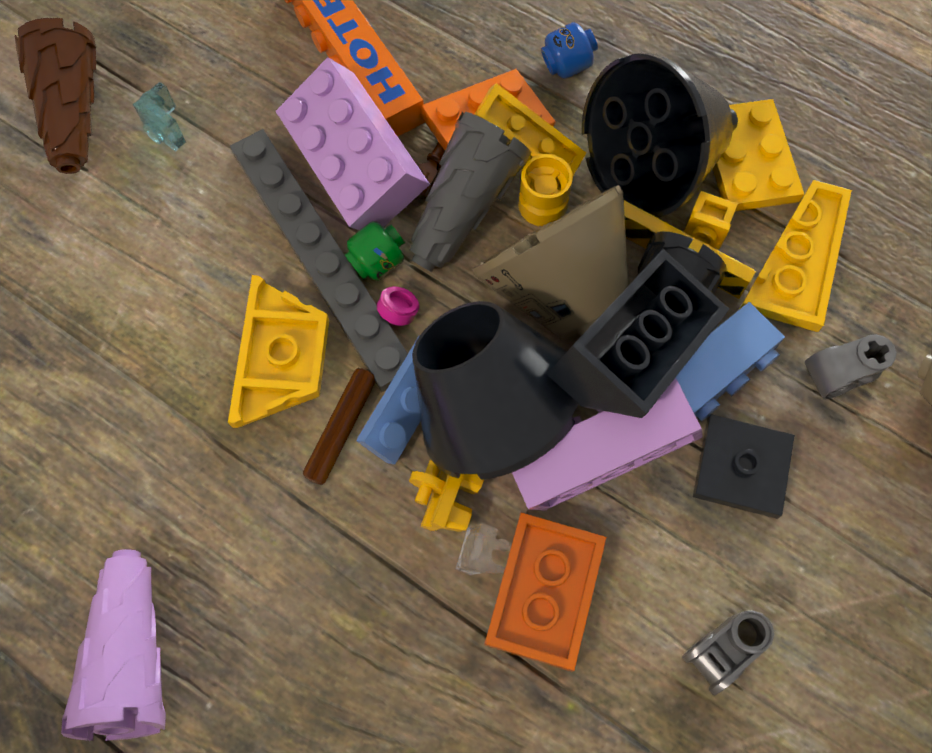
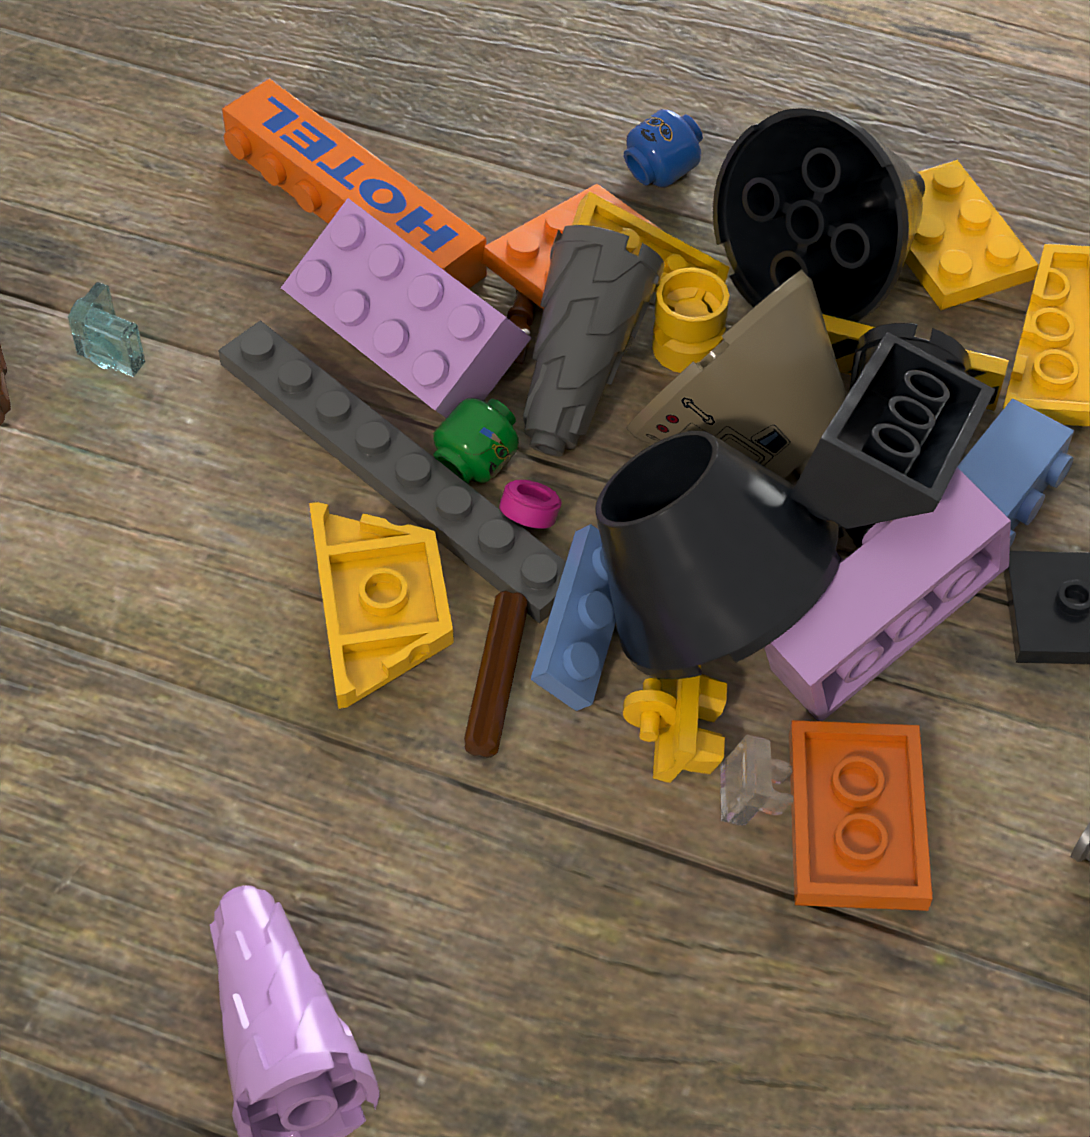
camera: 15 degrees left, 15 degrees down
(710, 219) = (927, 308): yellow bracket -> none

